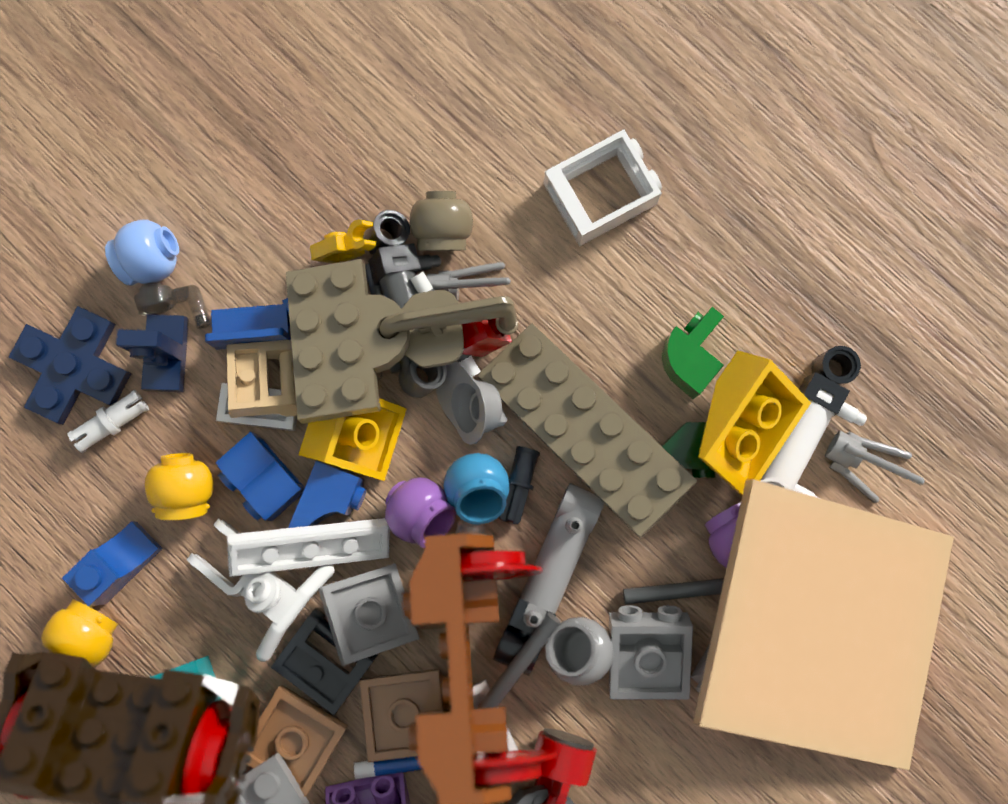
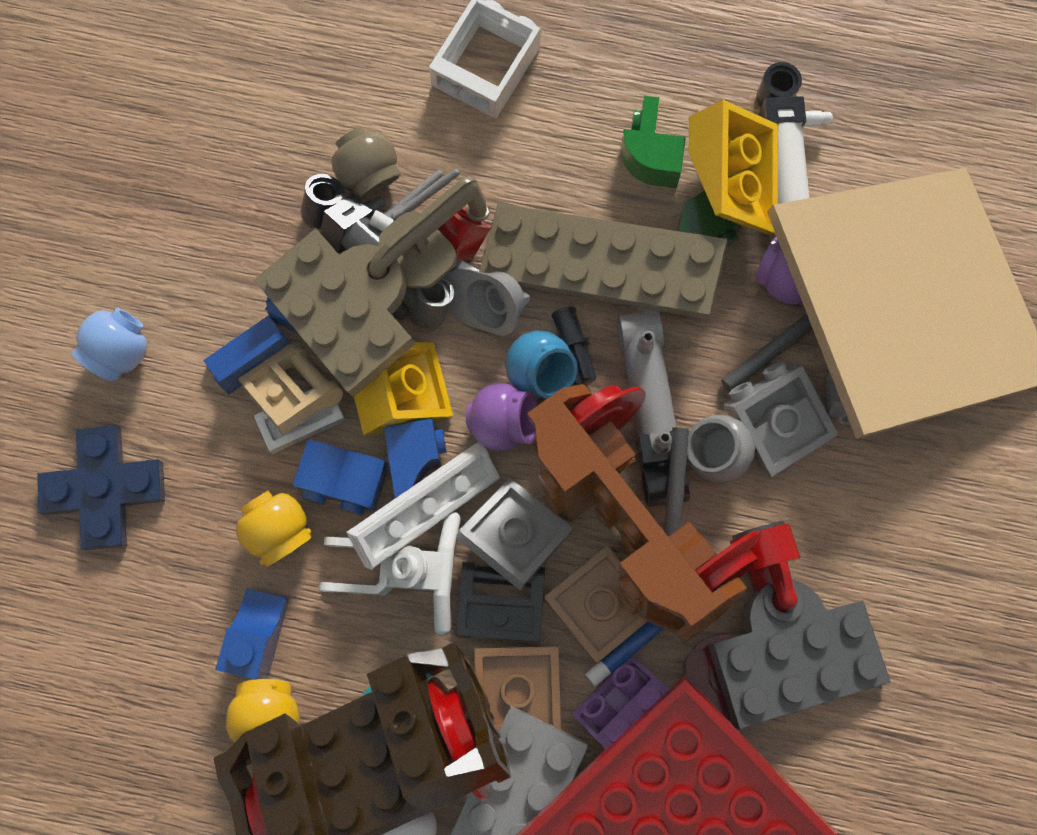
camera: 30 degrees left, 5 degrees down
(108, 421) = (168, 513): white pin -> none
(158, 298) = (148, 378): clear smoke plate -> none
(162, 350) = (179, 420): dark blue bracket -> none
(343, 246) = (288, 233): yellow plate -> none
(850, 450) = (835, 149): light grey plant -> none

